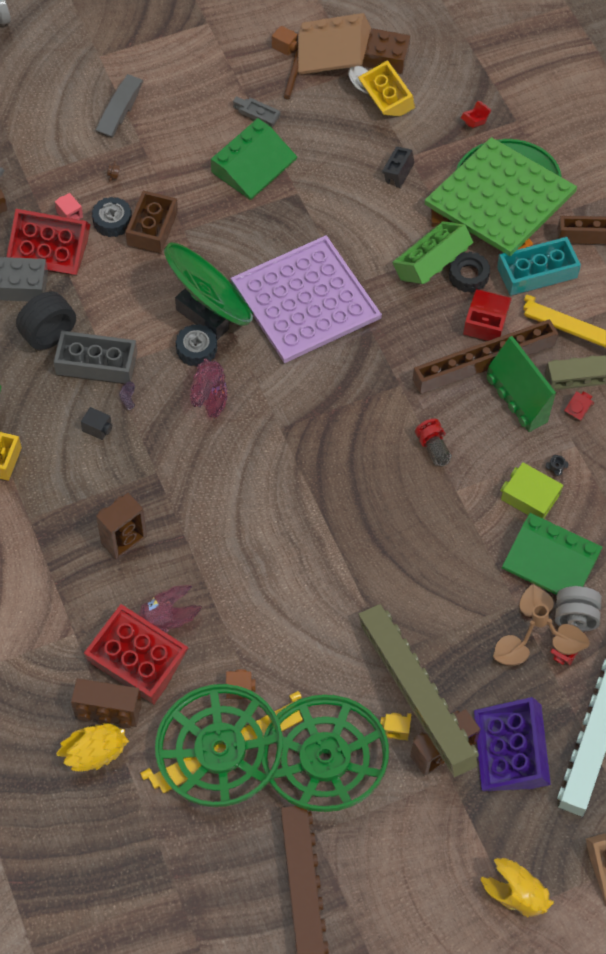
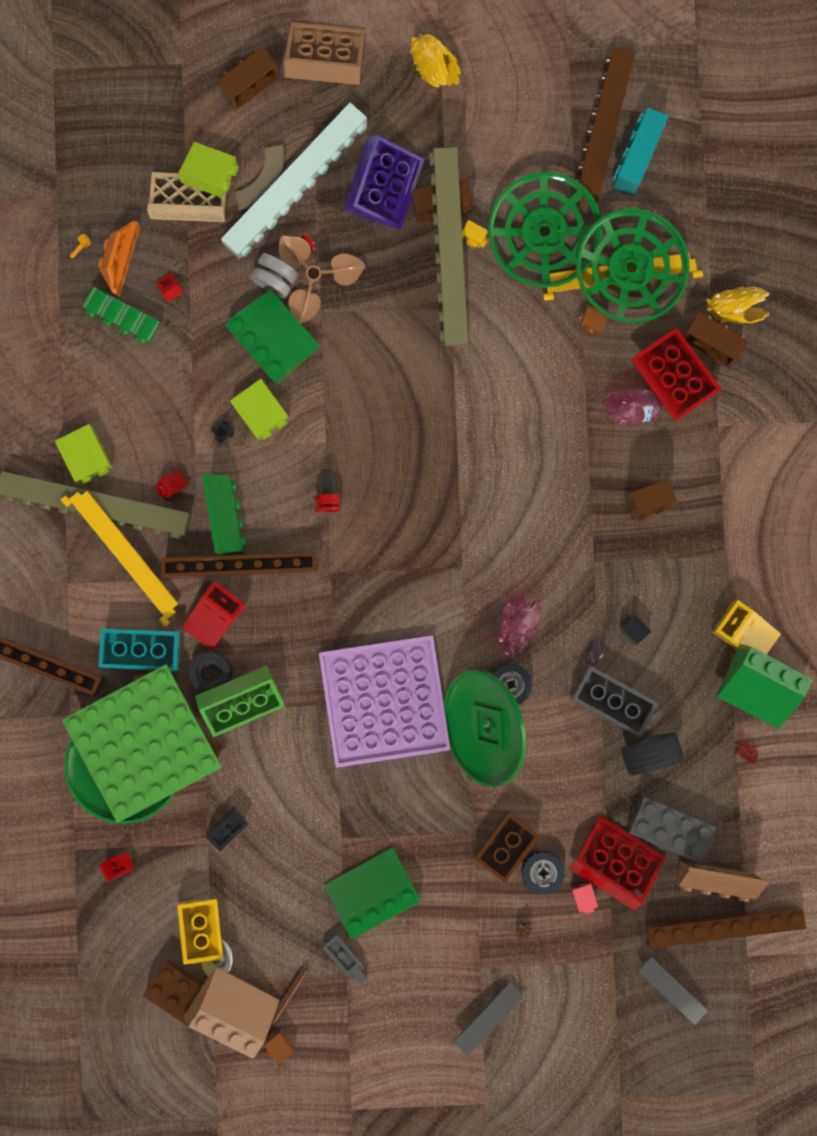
camera: 160 degrees left, 25 degrees up
(254, 864) = (639, 151): none -> teal brick

